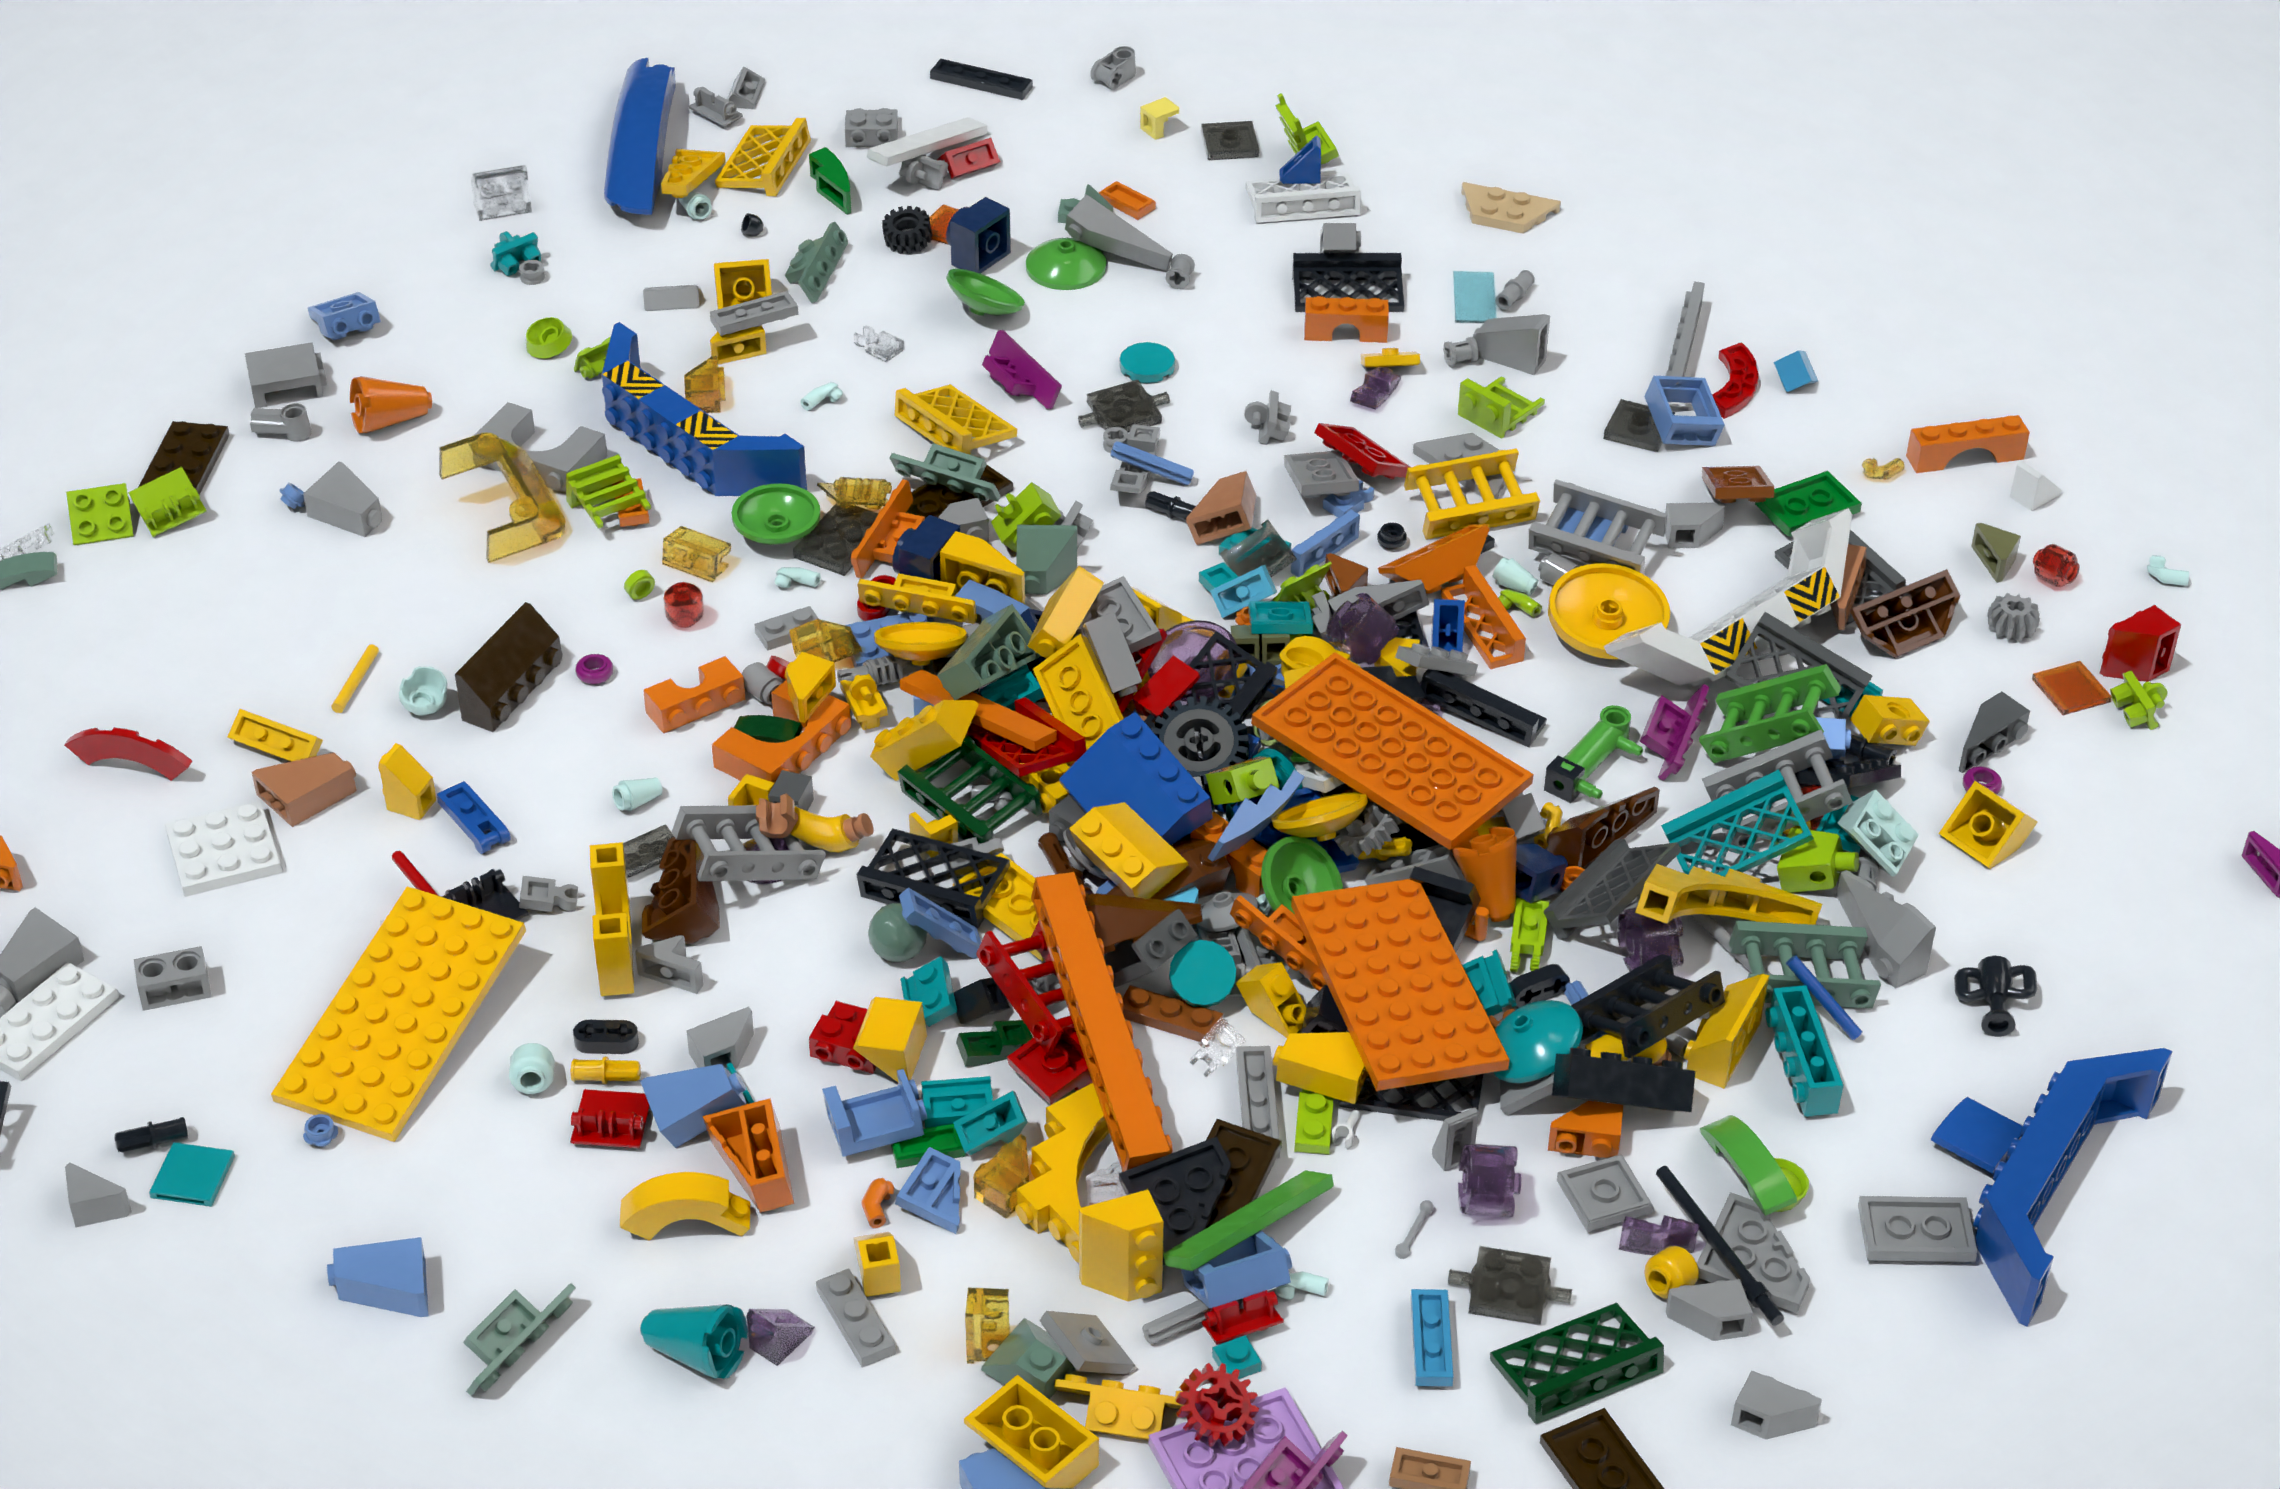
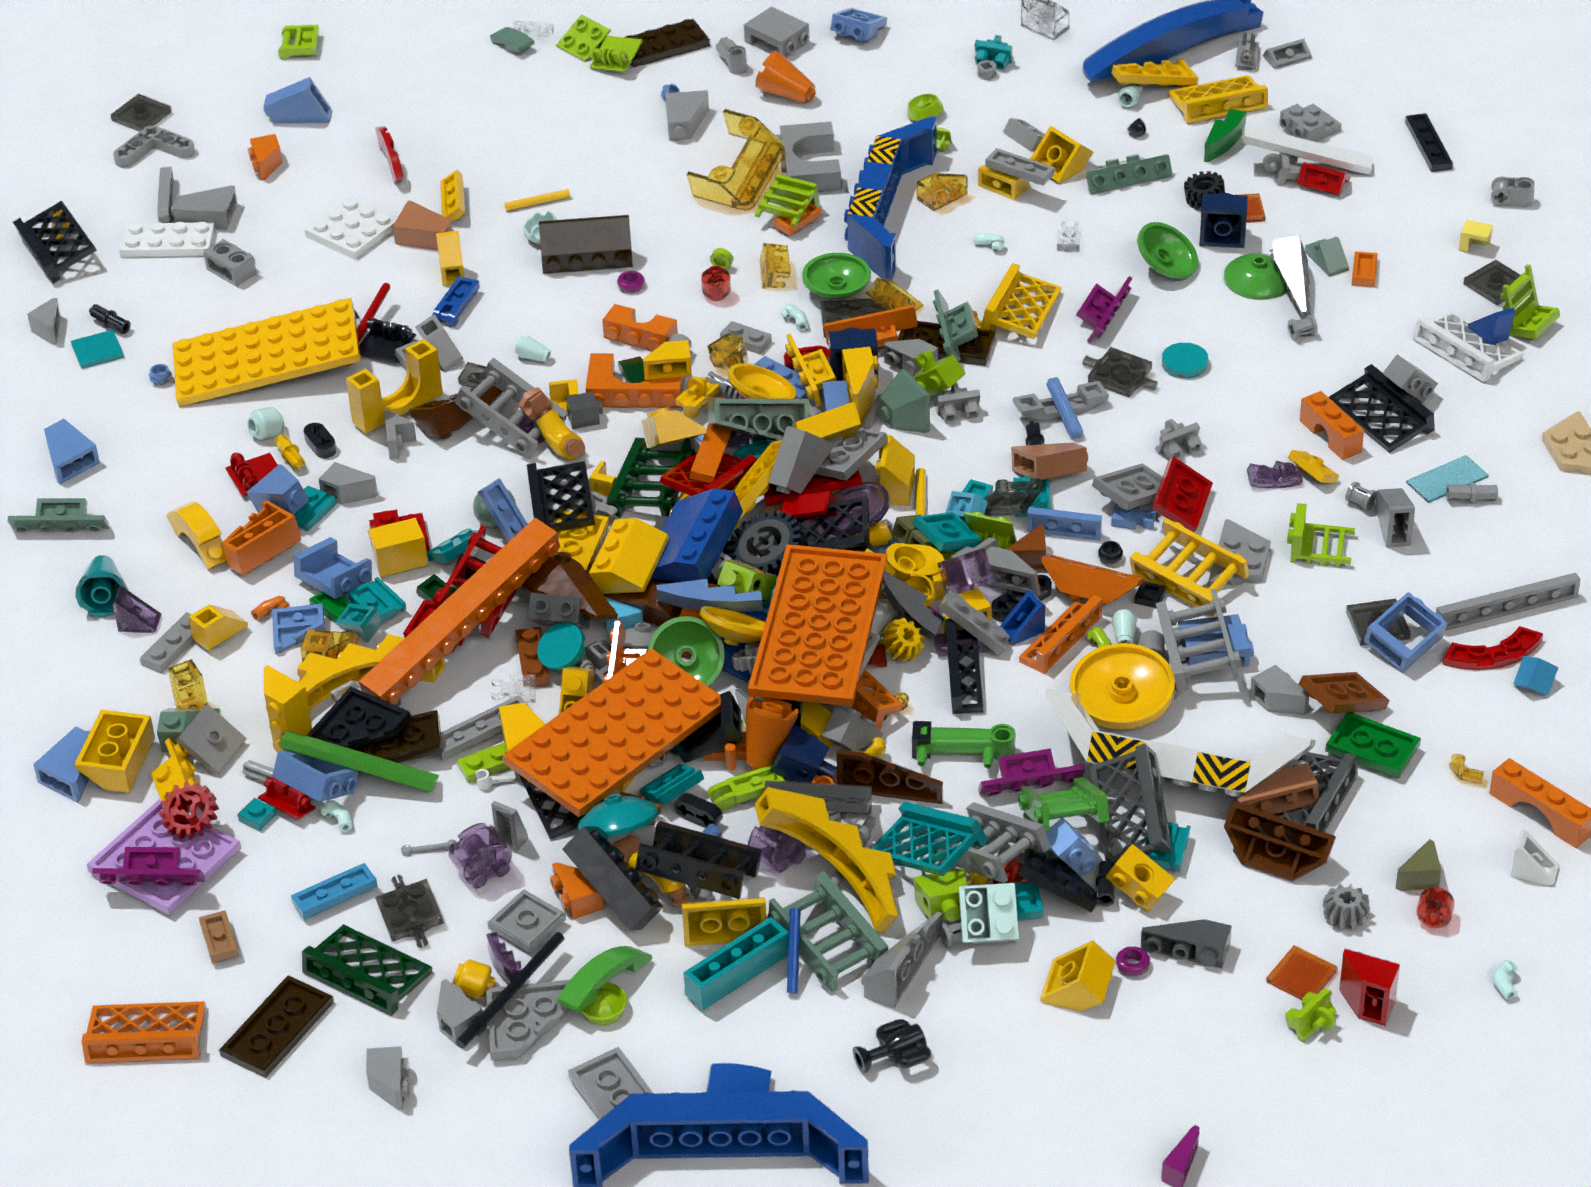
camera: 60 degrees right, 0 degrees up
(549, 857) = (435, 334): none -> light grey slope
(777, 666) = (699, 351): red tile -> none
(1112, 435) = (1080, 378): light grey bush -> none

